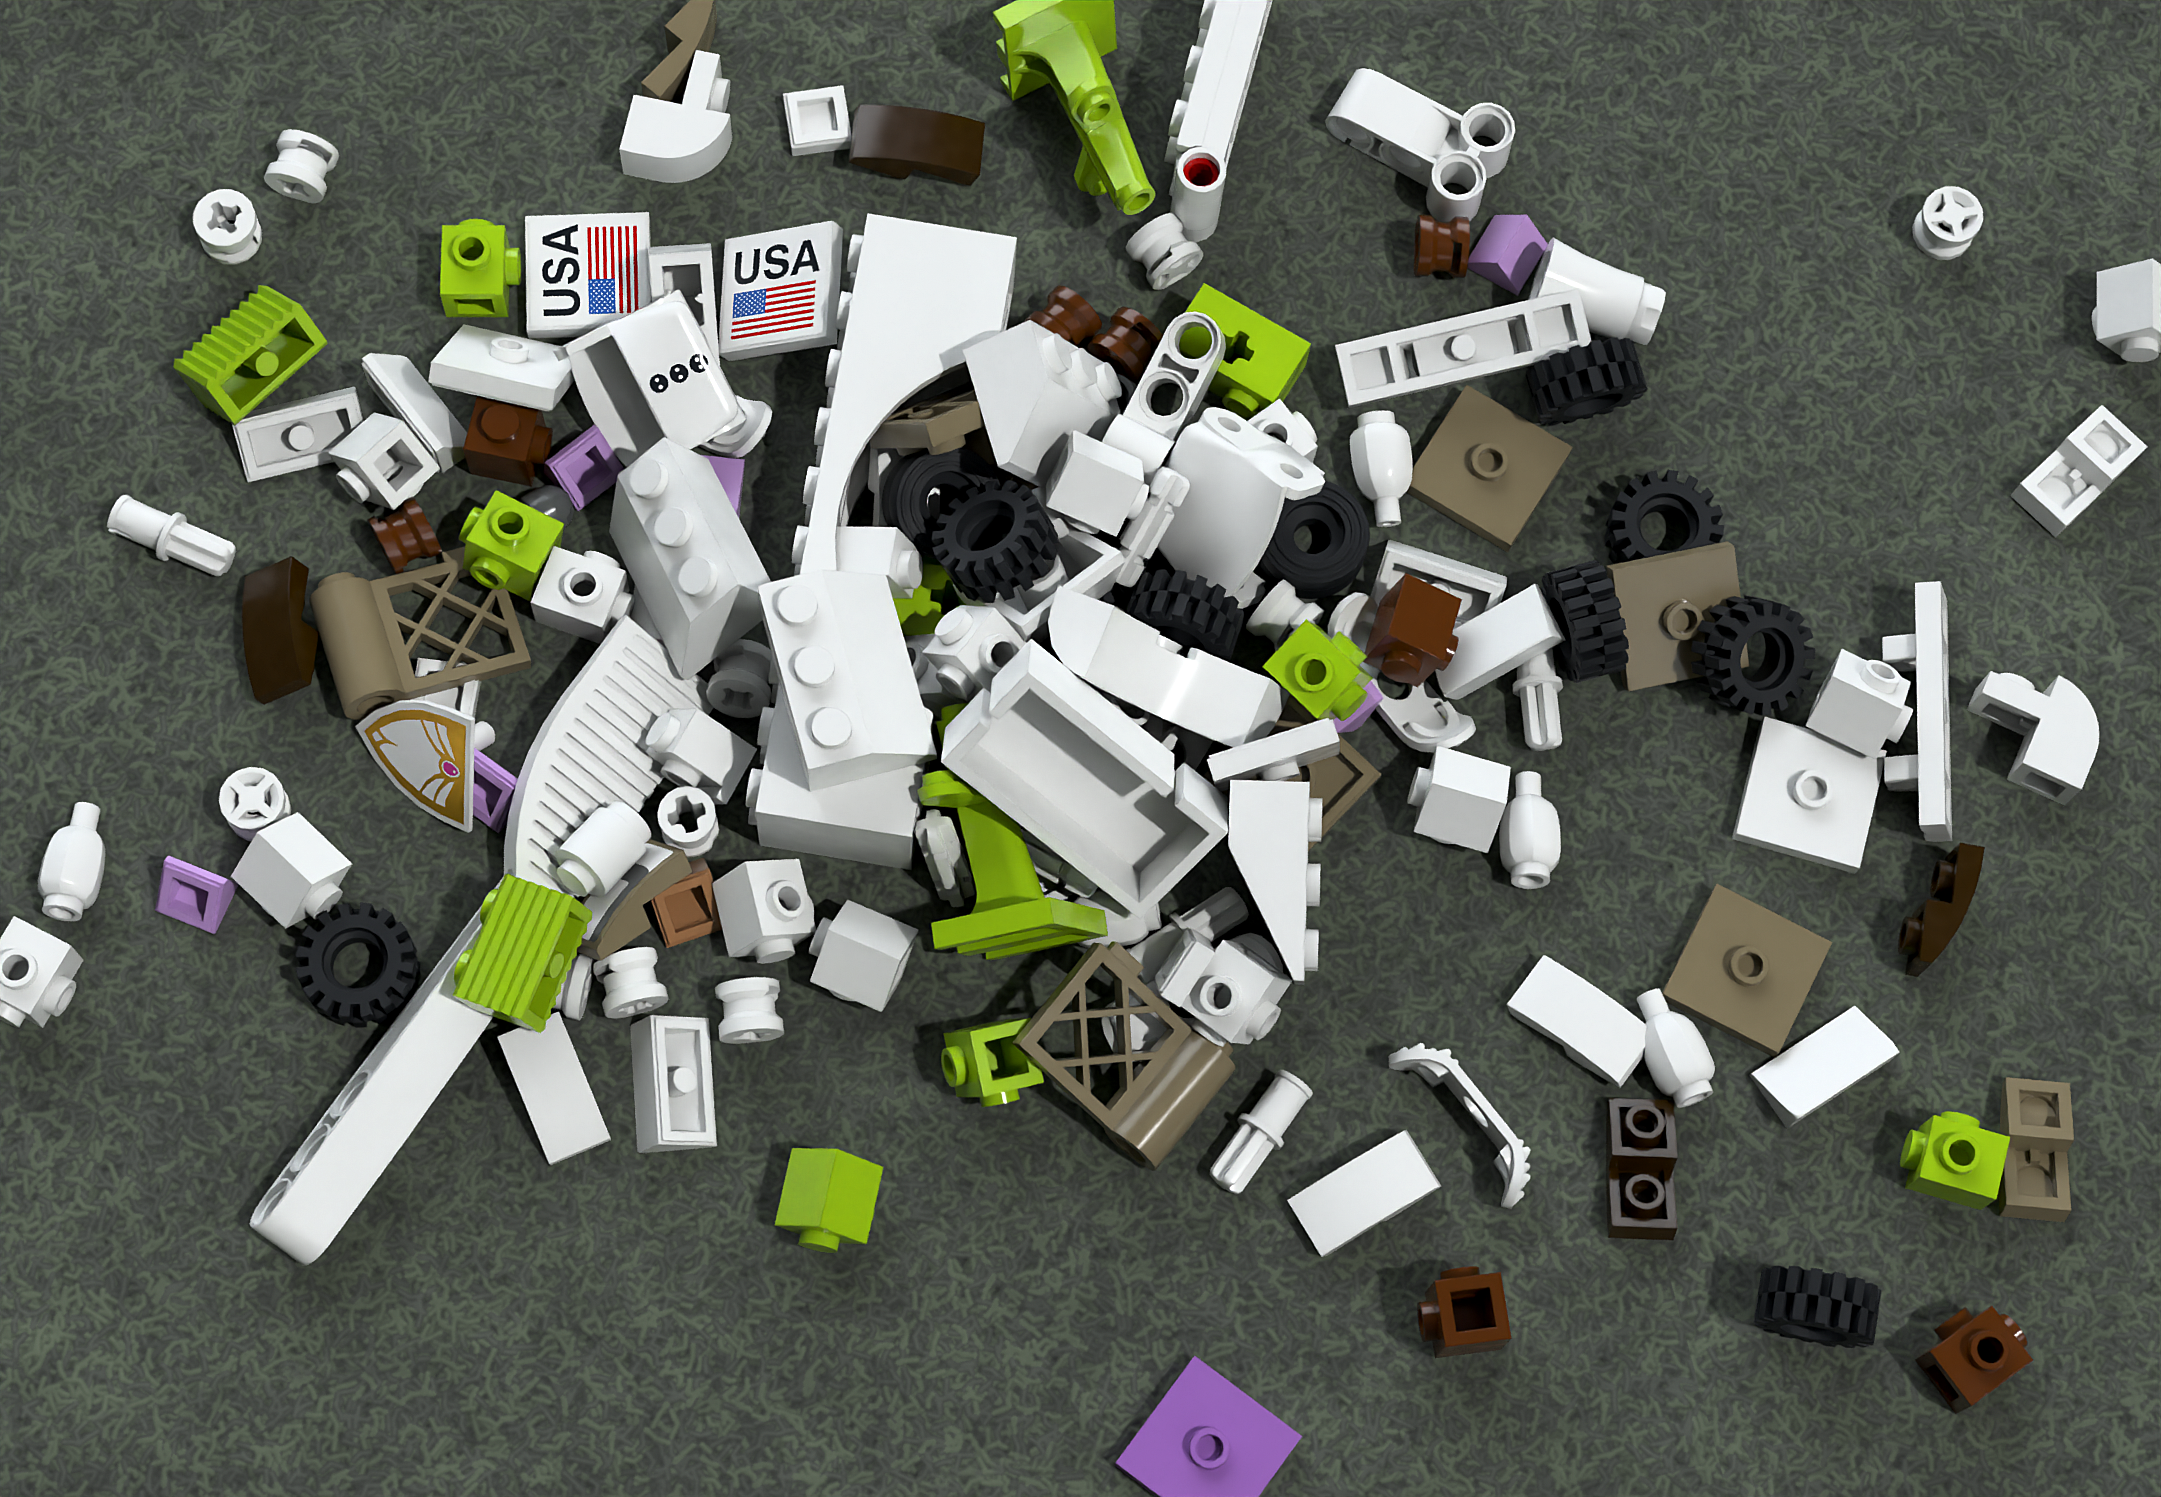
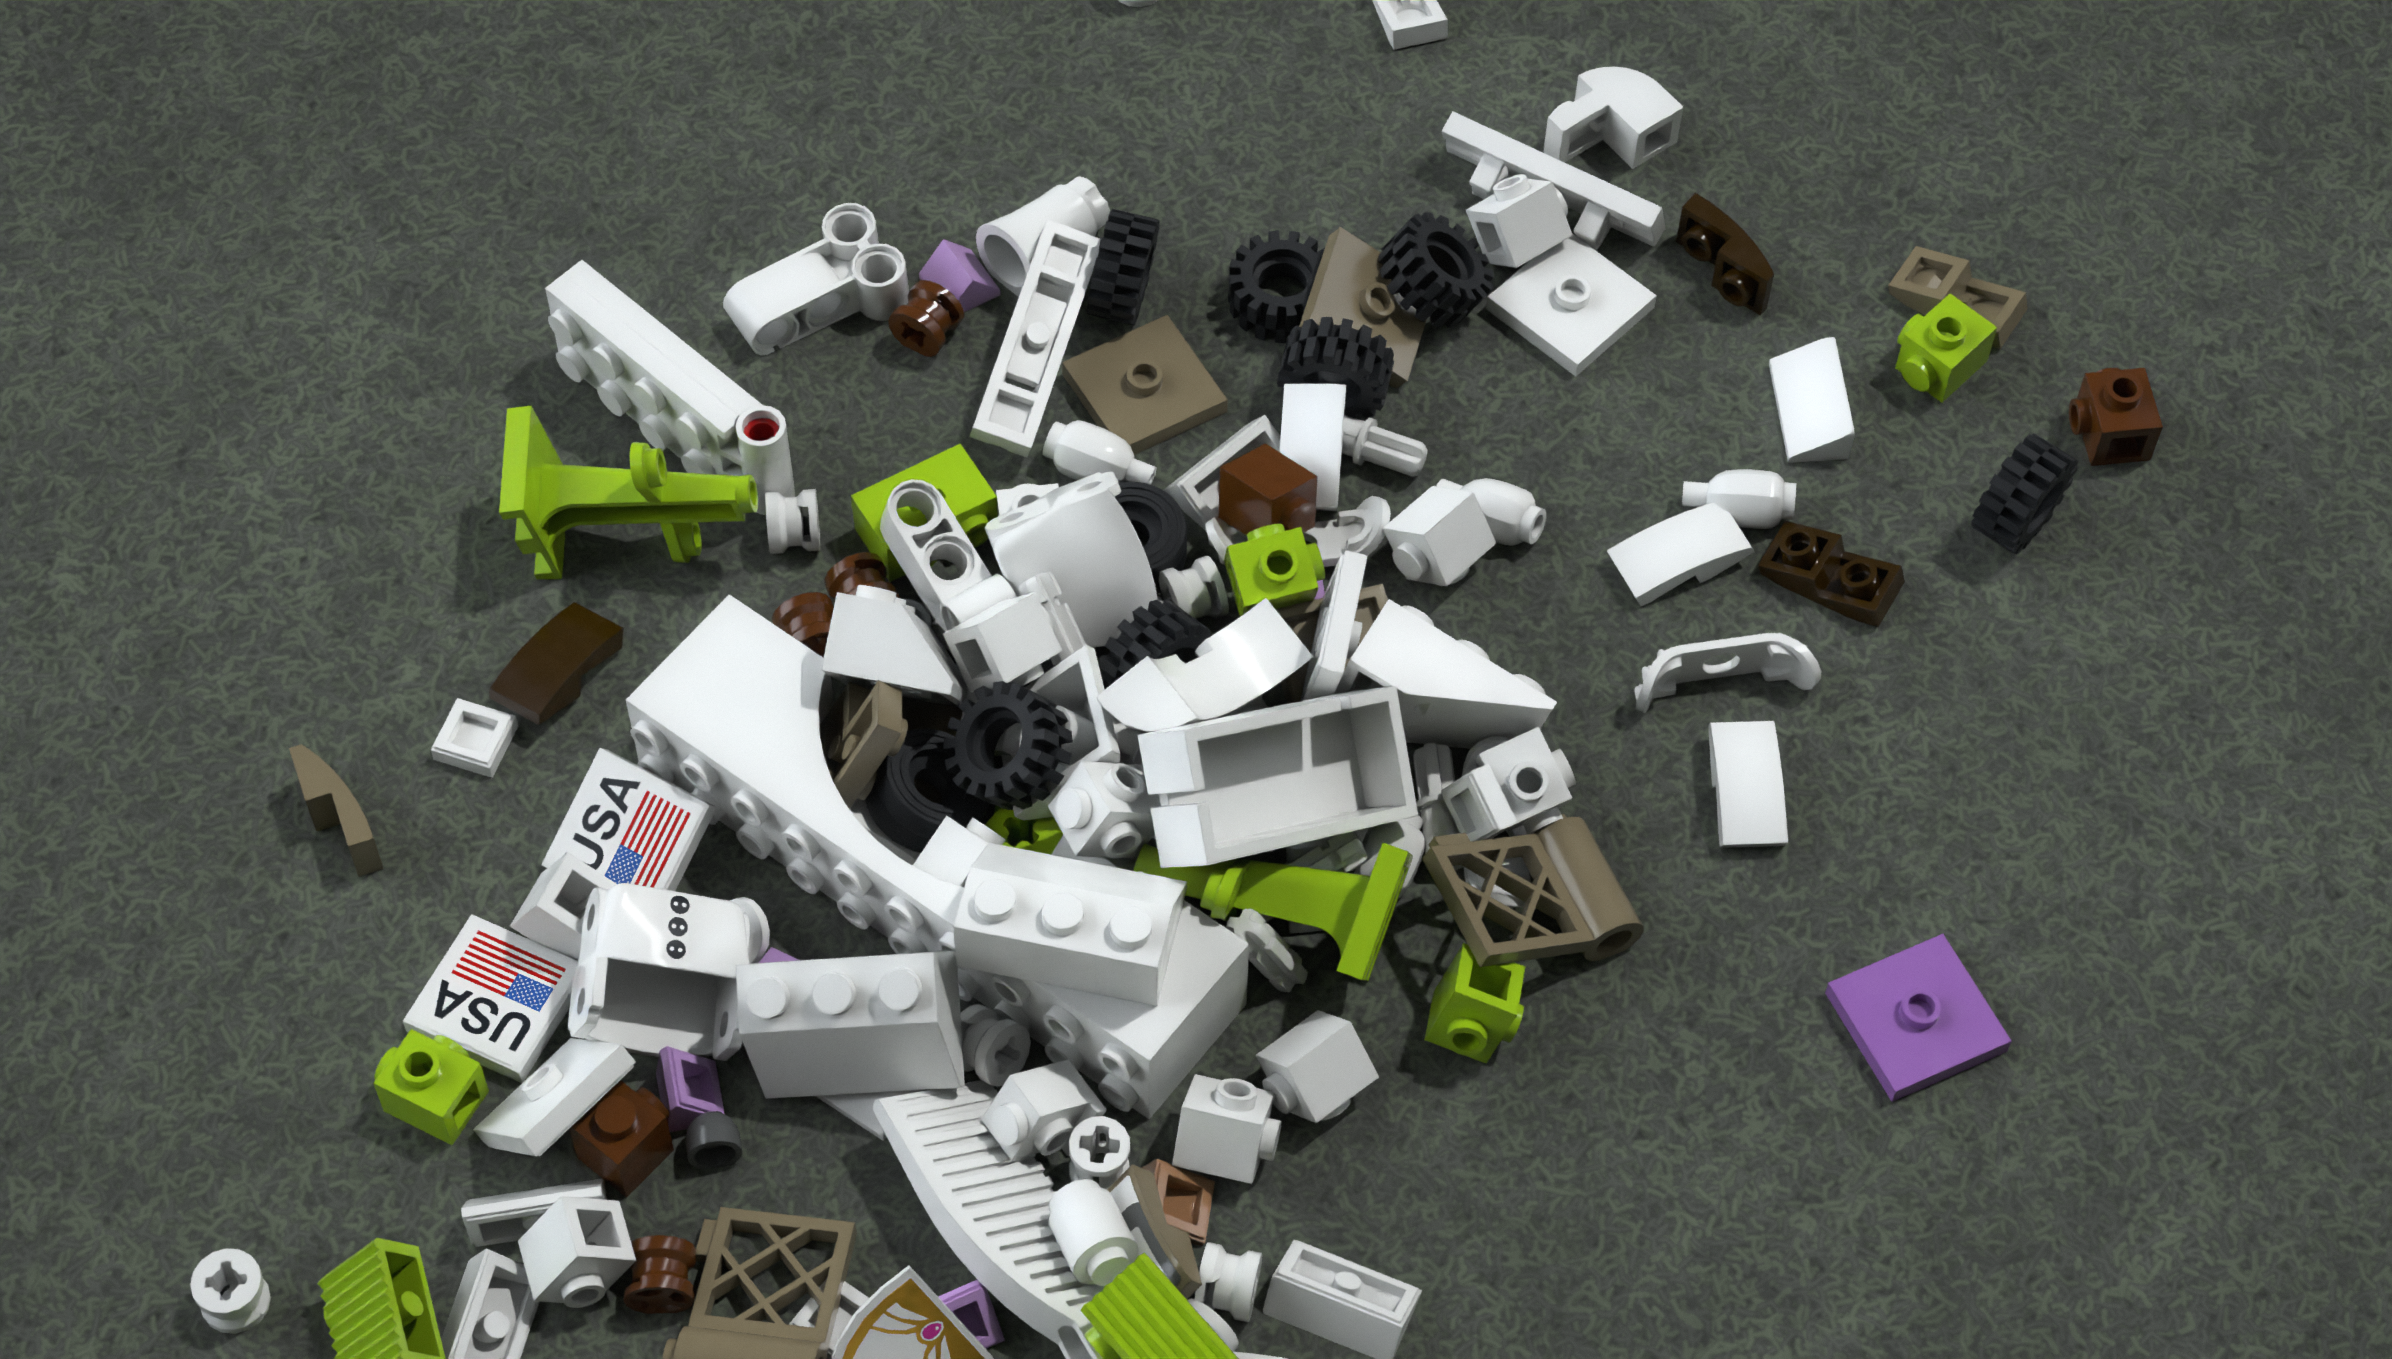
camera: 55 degrees left, 15 degrees down
(301, 166) = (215, 1192): white wheel -> none
(509, 544) = (734, 1178): lime brick -> none
(582, 594) = (820, 1144): white brick -> none
(680, 140) = (416, 848): white brick -> none
(749, 1010) = (1312, 1192): white wheel -> none
(828, 1198) = (1532, 1205): lime brick -> none
(1260, 1132) = (1649, 836): white axle -> none
(1464, 1313) = (1900, 748): reddish brown brick -> none
(1745, 970) = (1698, 418): dark tan plate -> none

